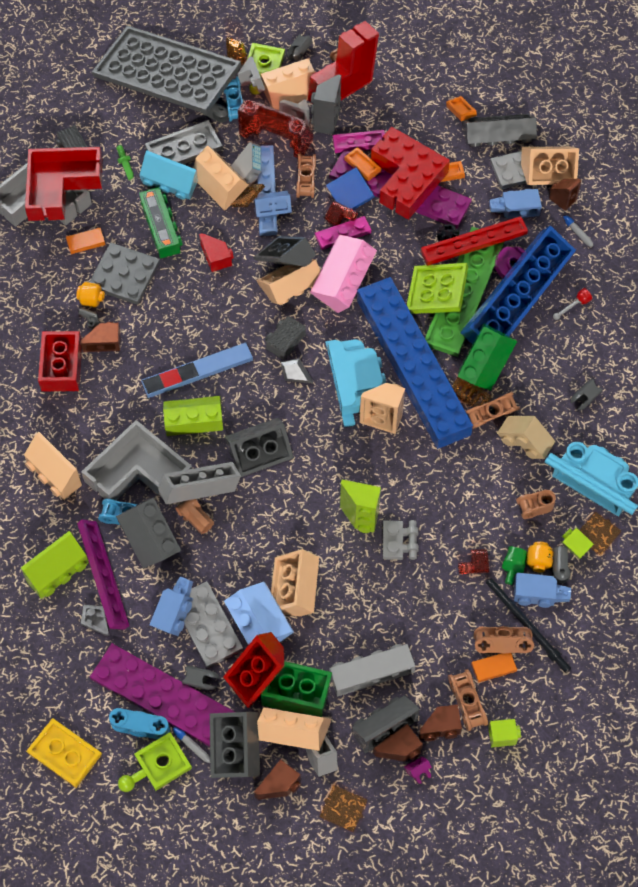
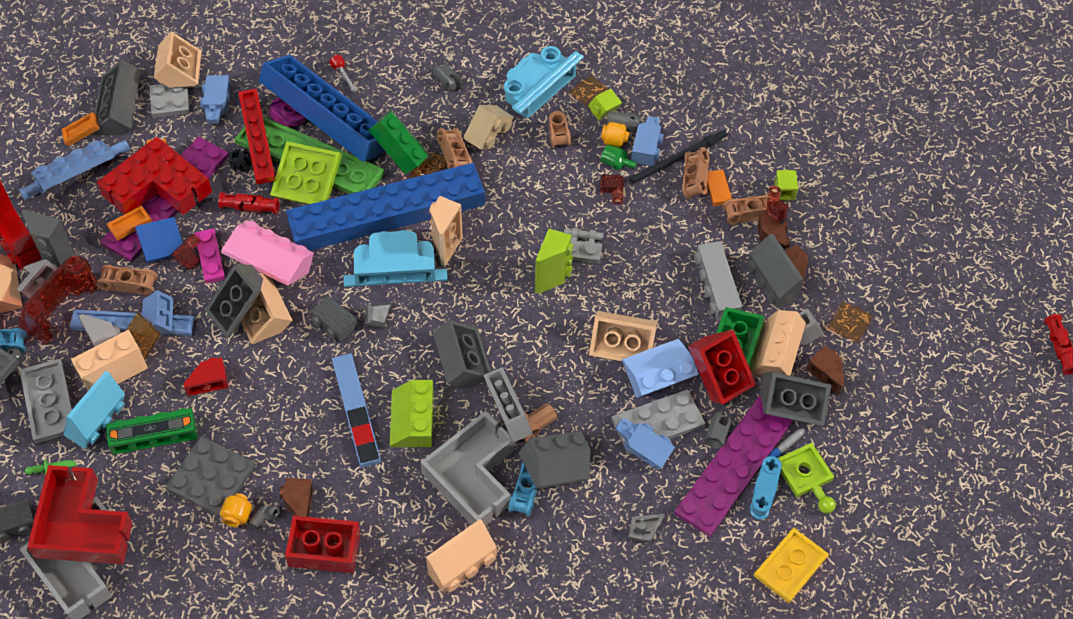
camera: 85 degrees left, 5 degrees down
(55, 565) = (584, 559): lime slope -> none
(85, 240) = (154, 516): orange tile -> none
(103, 575) = (604, 514): magenta plate -> none
(362, 140) = (93, 226): dark pink plate -> none
(402, 251) = (248, 203): none -> red piece
(418, 767) = (816, 255): magenta tile -> none
(421, 113) = (72, 165): none -> medium blue plate
(461, 715) = (775, 207): none -> clear red piece
(565, 192) = (214, 55): copper slope -> none
(578, 231) = (259, 57): light grey piece -> none

